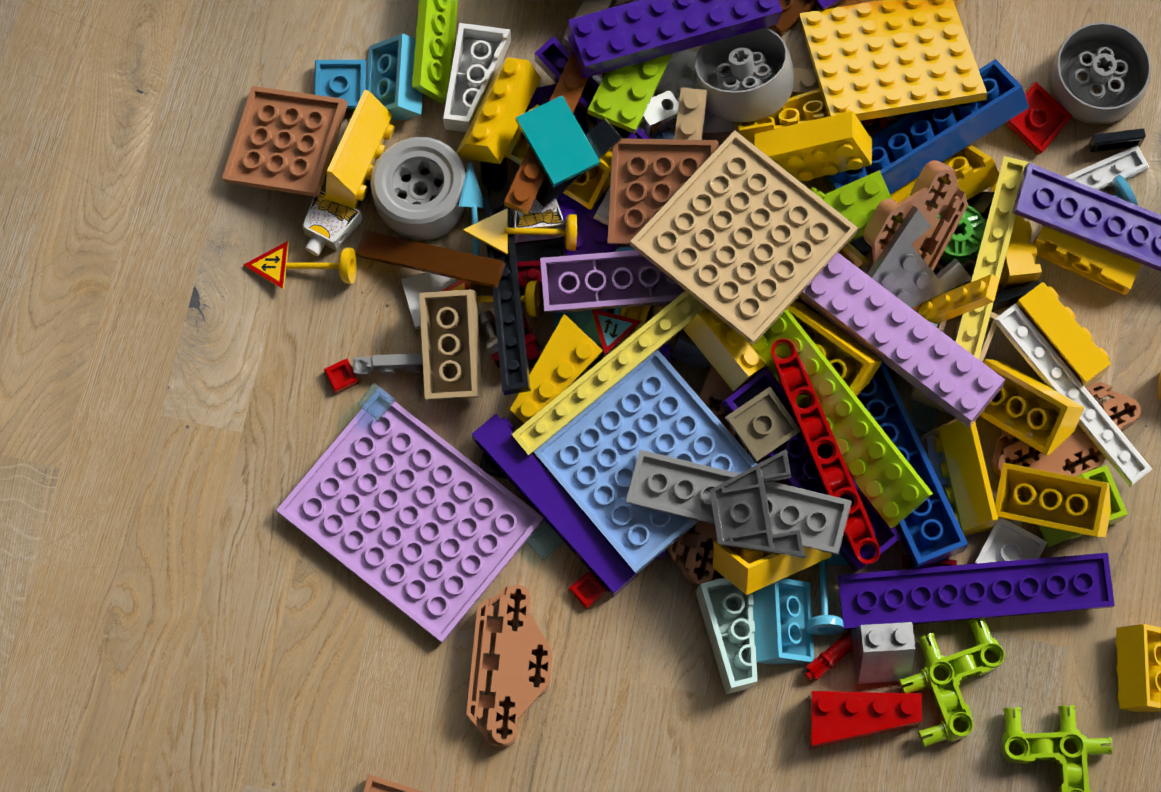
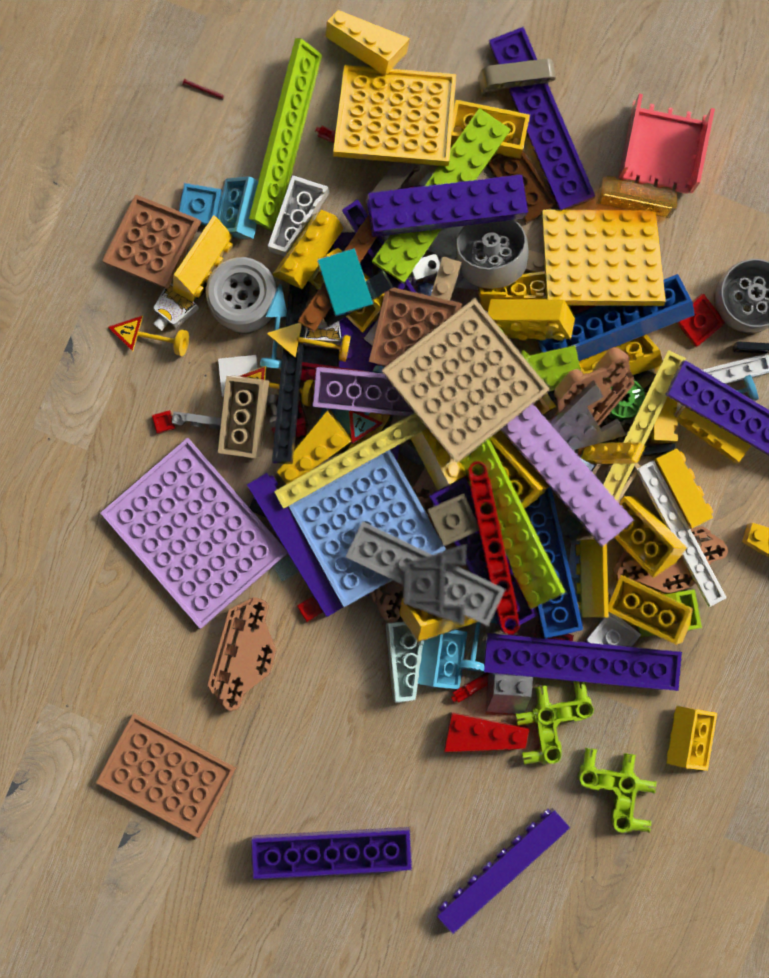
camera: 10 degrees right, 10 degrees up
(376, 401) = (184, 447): clear light blue tile -> none
(430, 259) = (240, 349): reddish brown tile -> none

